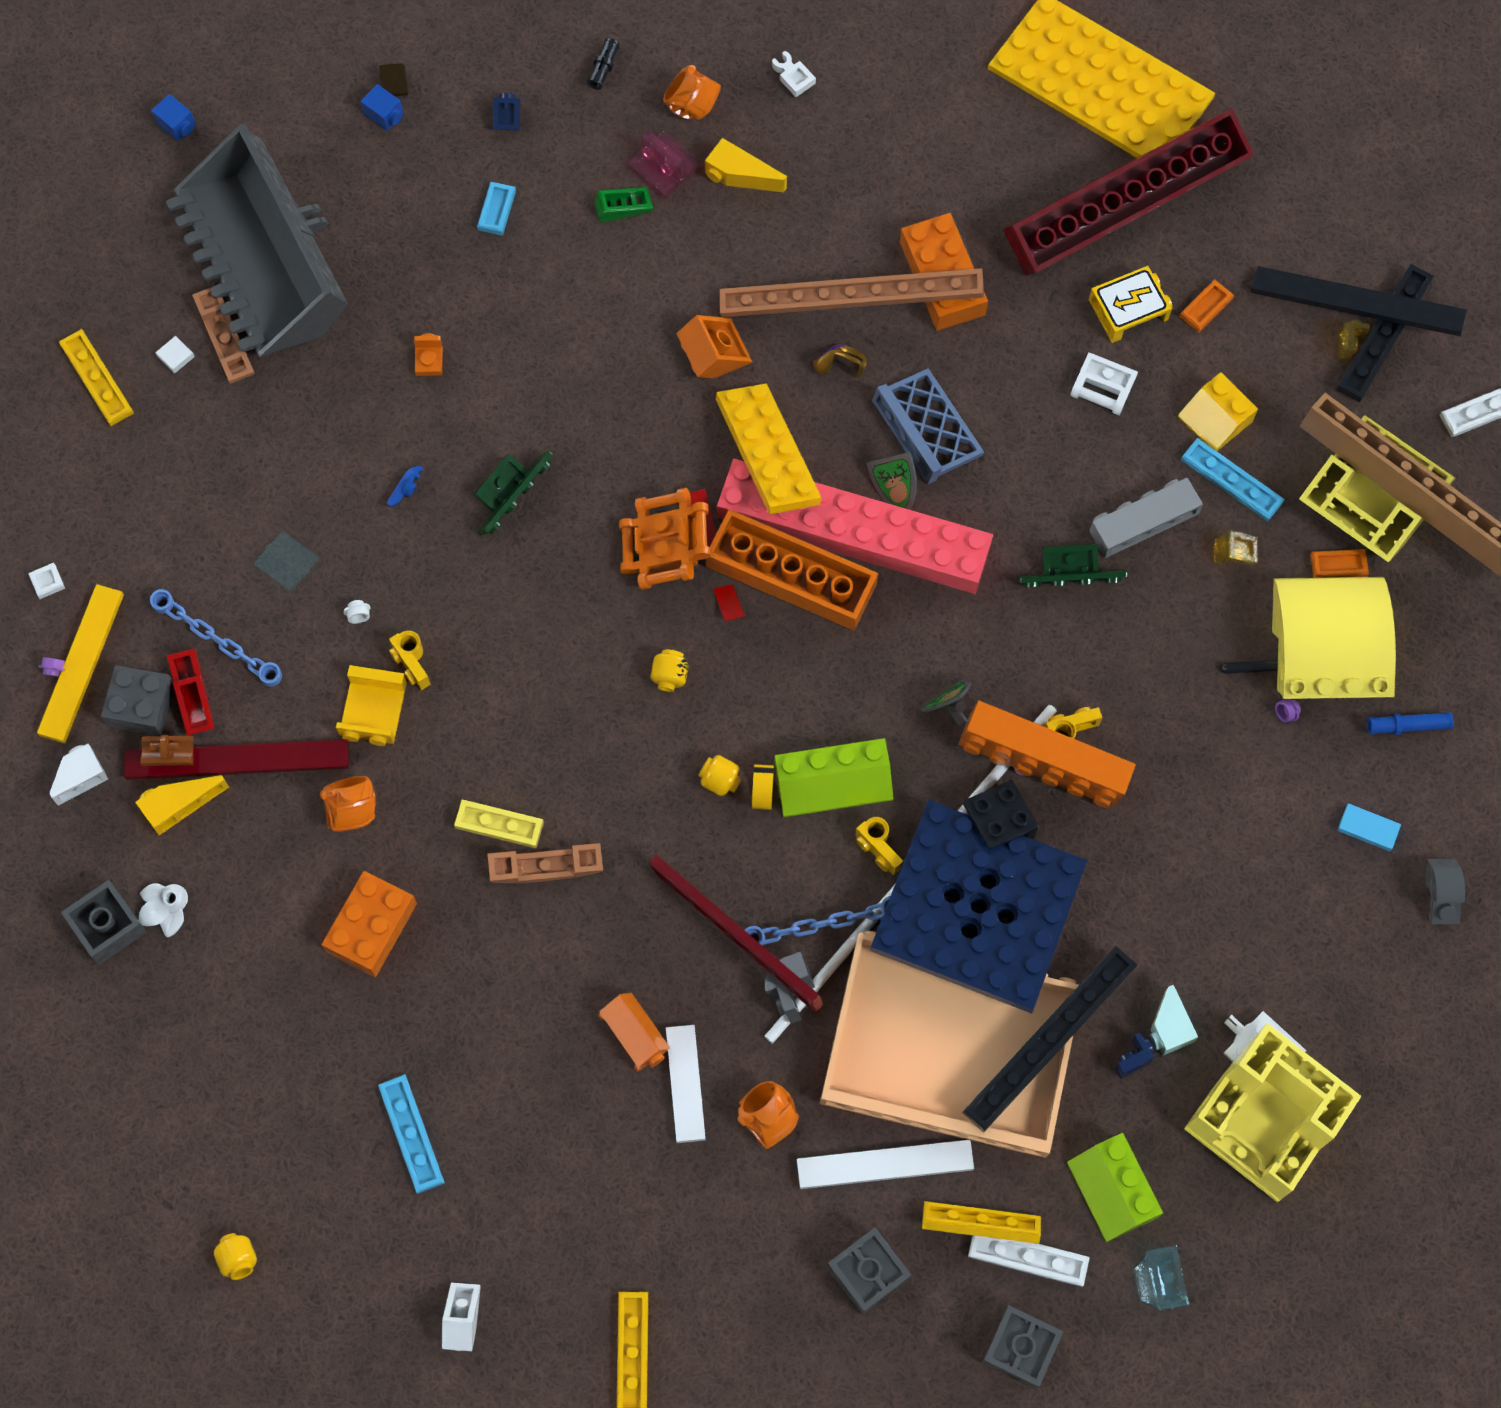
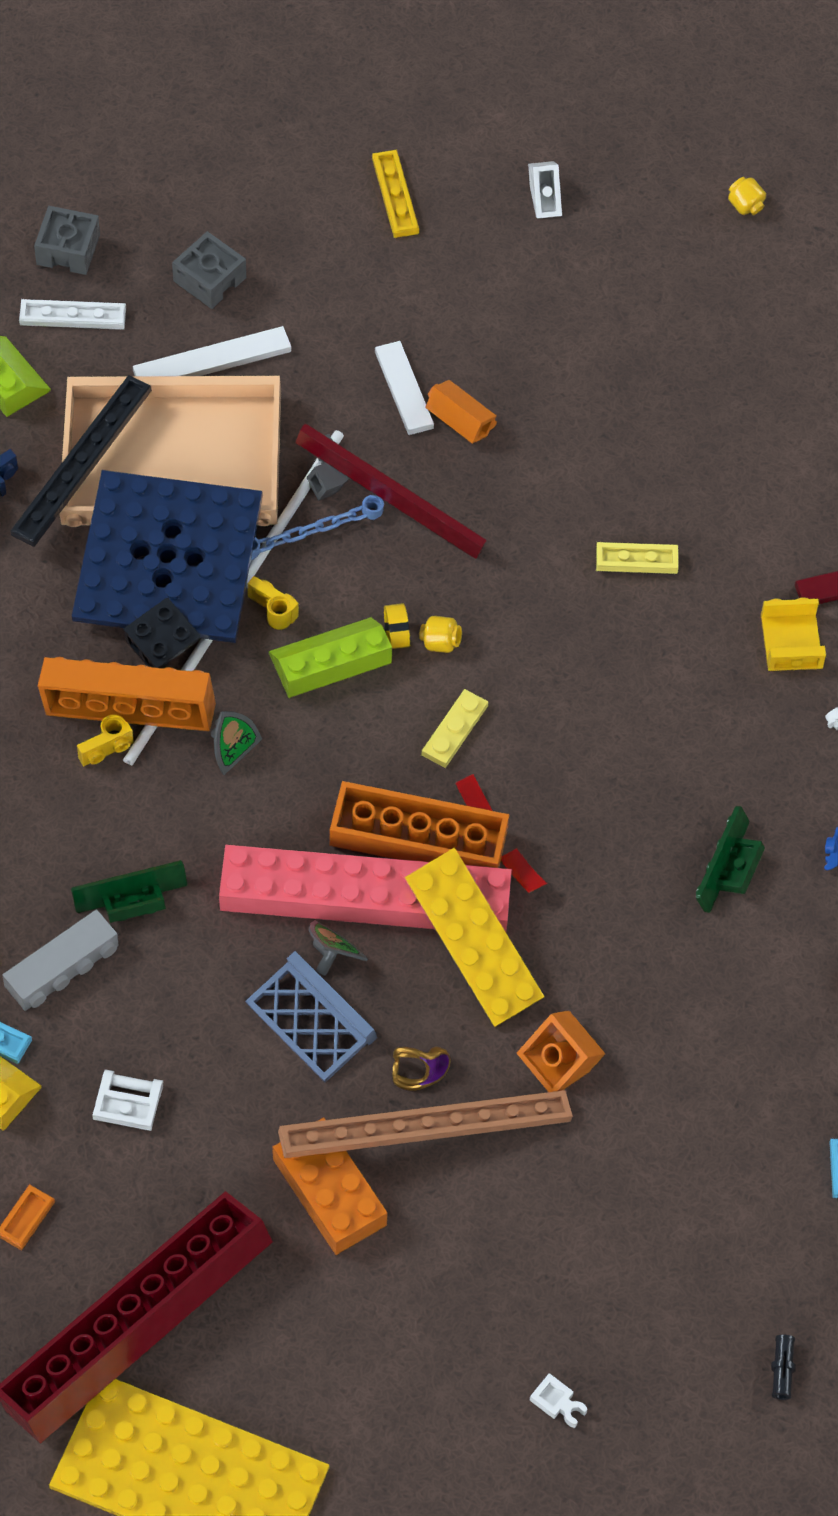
camera: 165 degrees right, 10 degrees down
(349, 803) = (783, 542): orange piece -> none
(369, 924) = (726, 451): orange brick -> none
(411, 1134) = (632, 311): medium azure tile -> none
(414, 672) = (771, 680): yellow plate -> none
(546, 865) = (584, 533): nougat slope -> none
(618, 212) = (712, 1187): green slope -> none
(663, 163) = (675, 1259): clear pink bracket -> none
(665, 541) = (555, 833): orange brick -> none
(669, 670) = (515, 716): yellow head -> none
(691, 94) = (663, 1342): orange piece -> none
(729, 679) = (454, 728): none -> light yellow plate
(740, 169) = (590, 1264): yellow slope -> none
(768, 1113) = (326, 365): orange piece -> none
(981, 1222) = (118, 327): yellow tile -> none
(1129, 302) = (110, 1191): panel -> none

